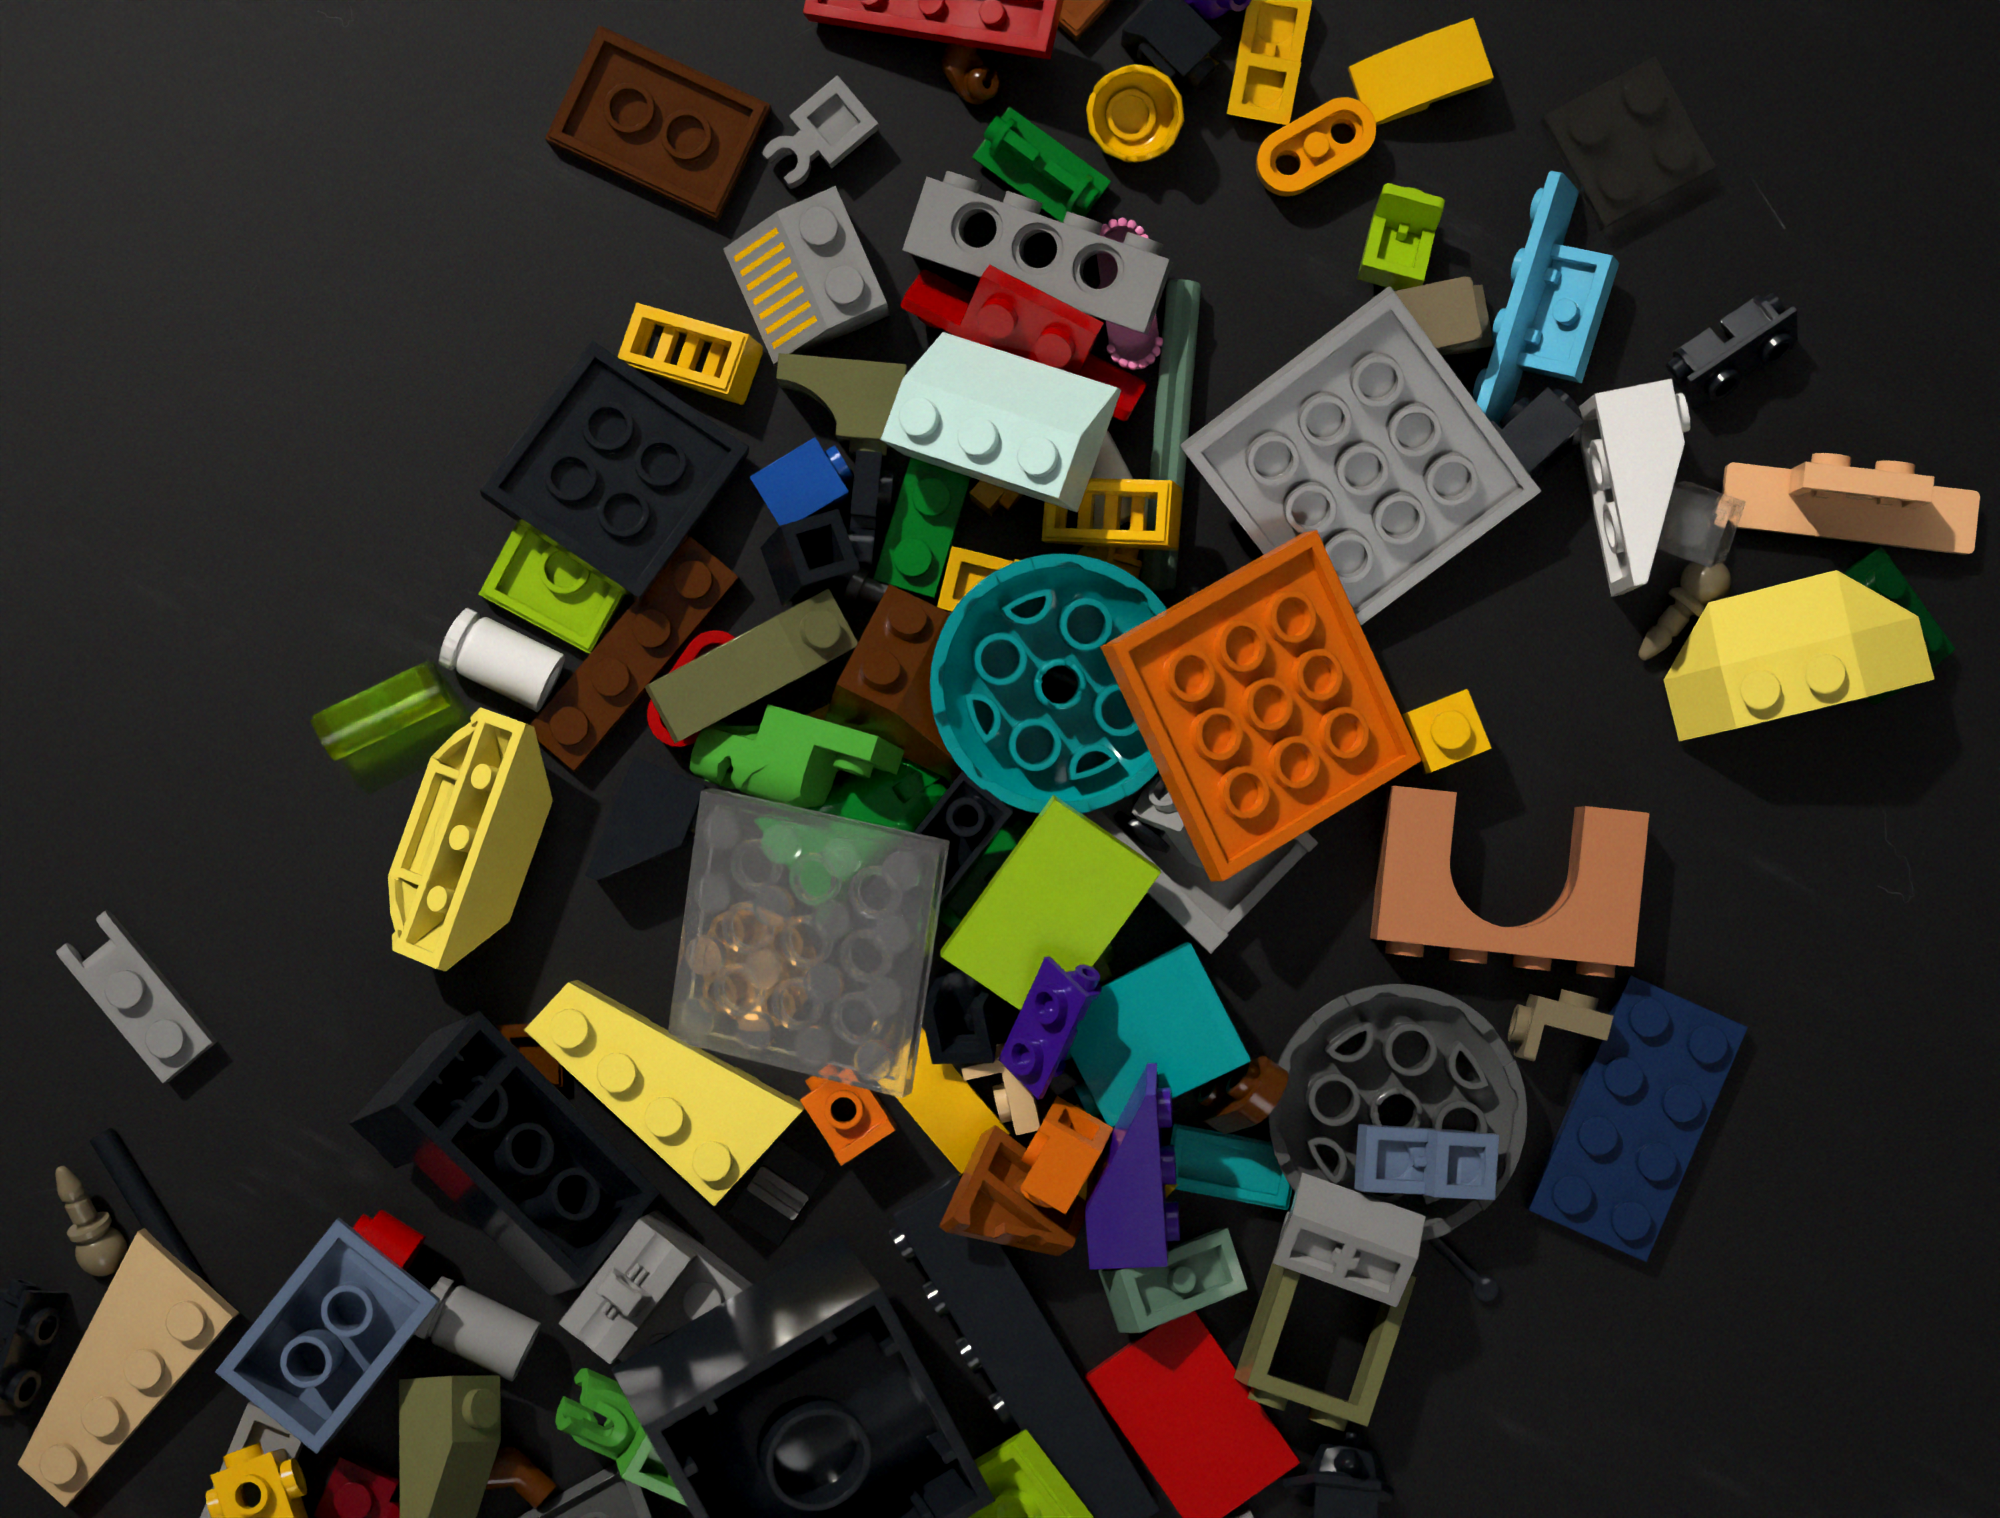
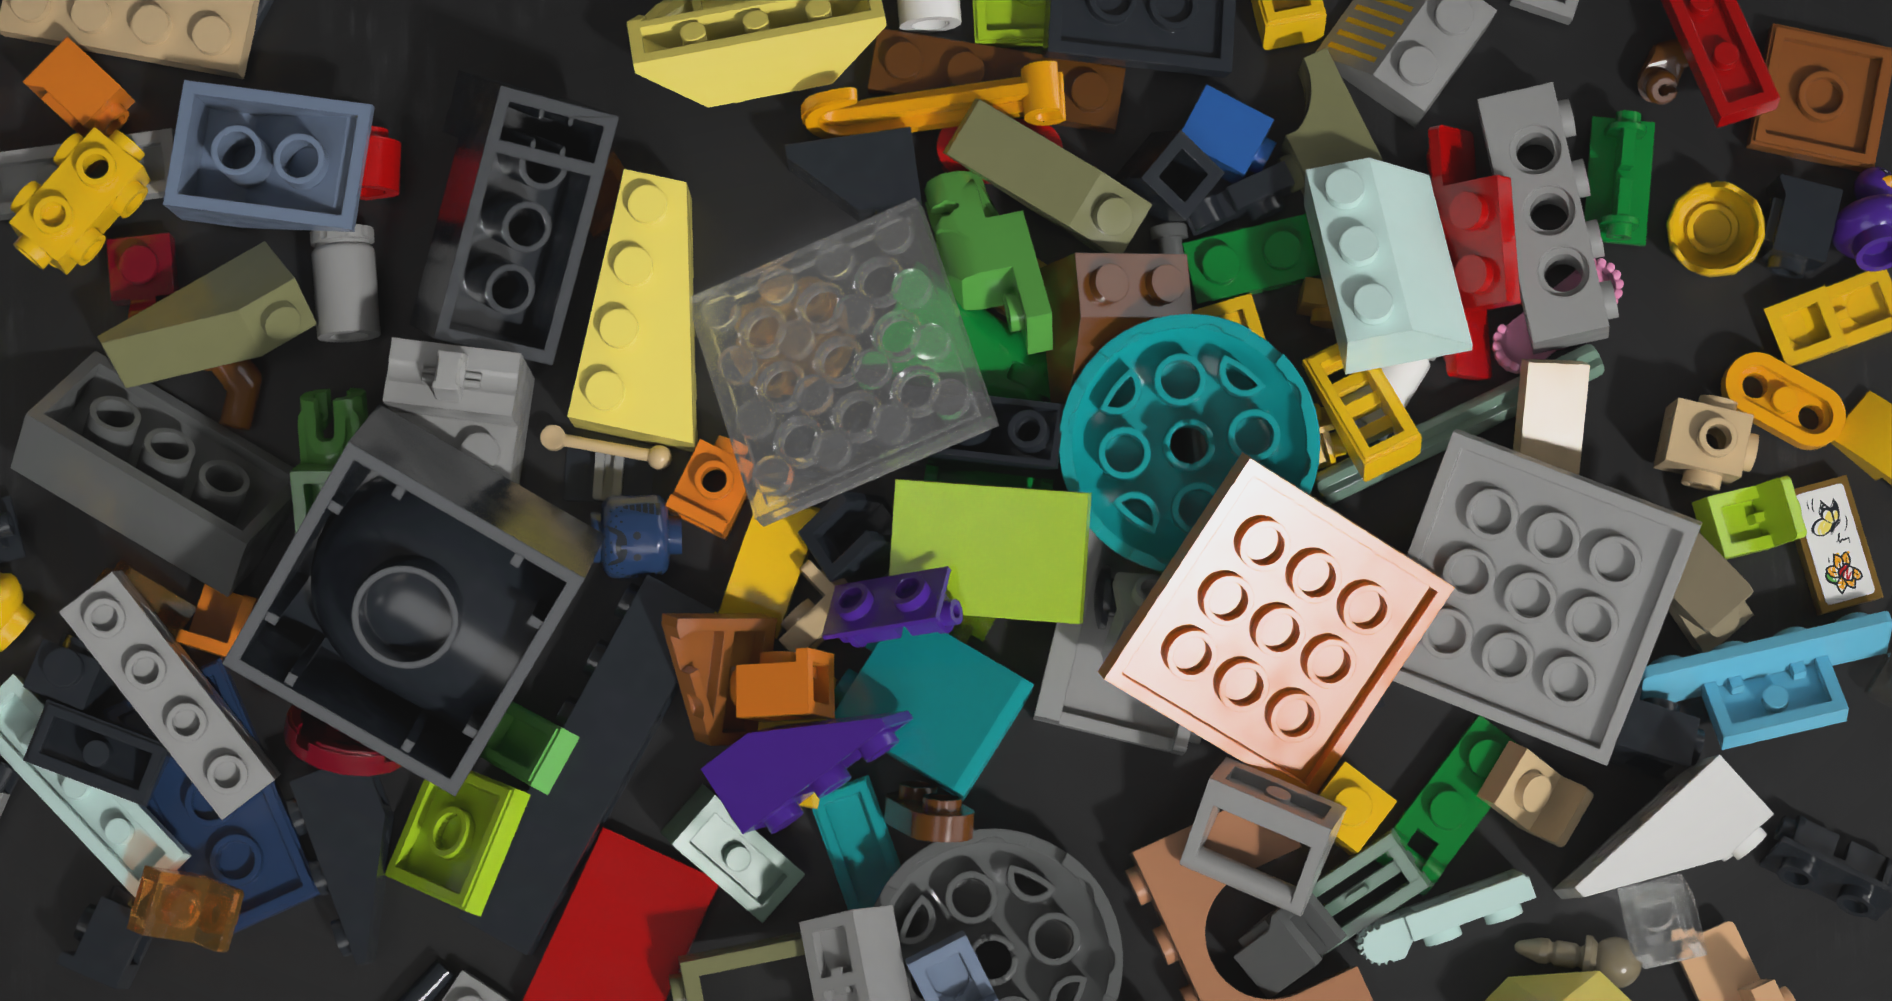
camera: 55 degrees right, 5 degrees down
(167, 1464) = (80, 90): none -> orange window
(669, 633) = (1034, 95): none -> light orange piece
(721, 1222) = (554, 439): none -> tan hinge
(850, 1204) = (636, 536): none -> dark blue head
(986, 1403) = (529, 747): none -> bright green tile
(1212, 352) = (1552, 411): none -> tile
(1308, 256) = (1685, 448): none -> tan brick
(1414, 798) = (1275, 807): none -> light grey tile
(1467, 179) = (1835, 548): none -> tile
(1490, 639) = (1448, 802): none -> green plate
(1517, 714) = (1402, 861): none -> sand green tile
(1527, 852) = (1287, 945): none -> dark grey window
(1528, 565) = (1535, 795): none -> tan bracket
(1581, 707) = (1441, 916): none -> light aqua hinge

